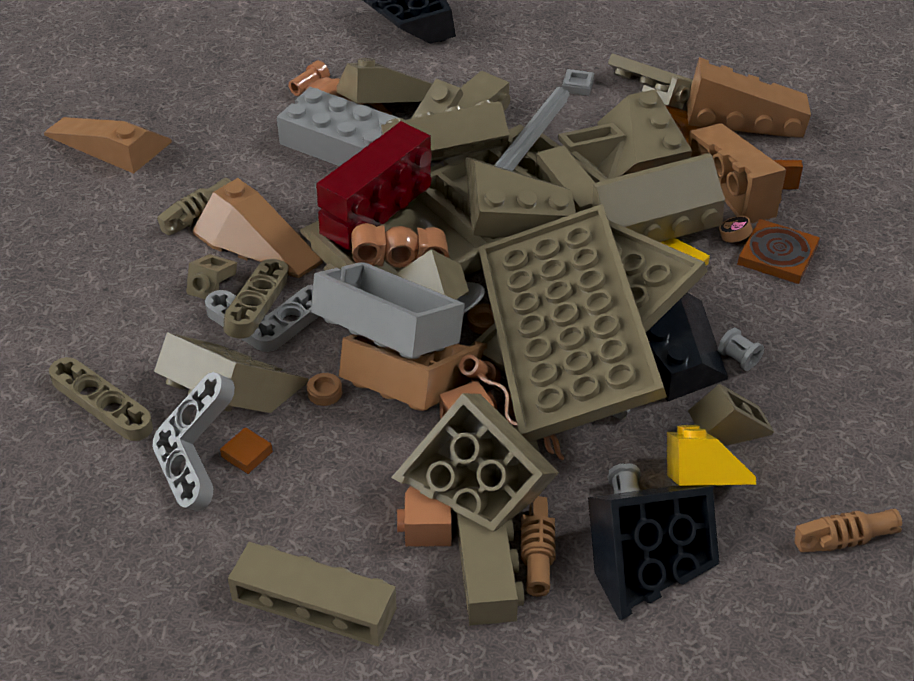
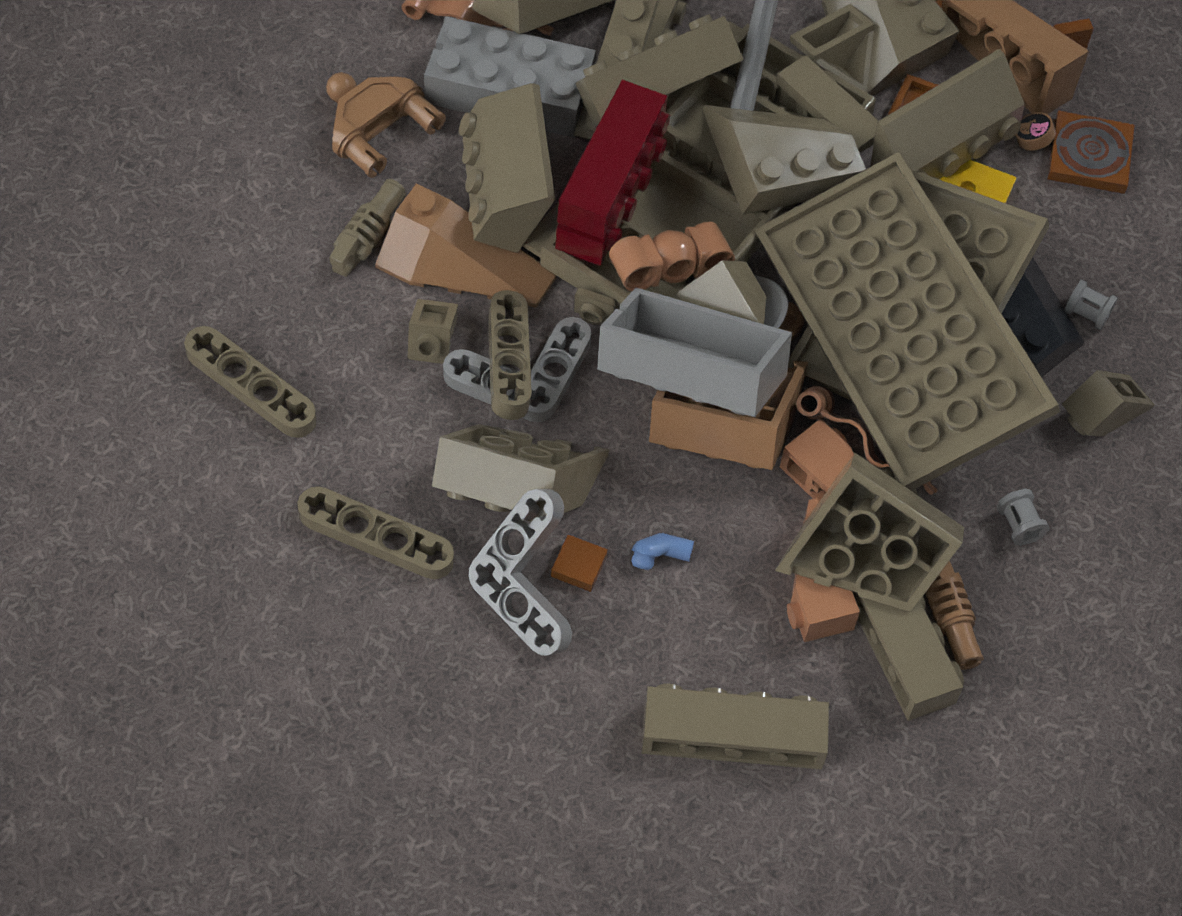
camera: 20 degrees left, 15 degrees up
(67, 283) = (247, 384): none -> dark tan beam
(110, 140) = (212, 145): medium nougat wedge -> none
(234, 137) = (370, 109): none -> medium nougat connector
(295, 185) = (507, 166): none -> dark tan slope
(316, 449) = (658, 545): none -> medium blue arm
(324, 389) = (635, 460): medium nougat tile -> none
(651, 541) = (1073, 577): black wedge -> none
(703, 460) = (1100, 472): yellow slope -> none

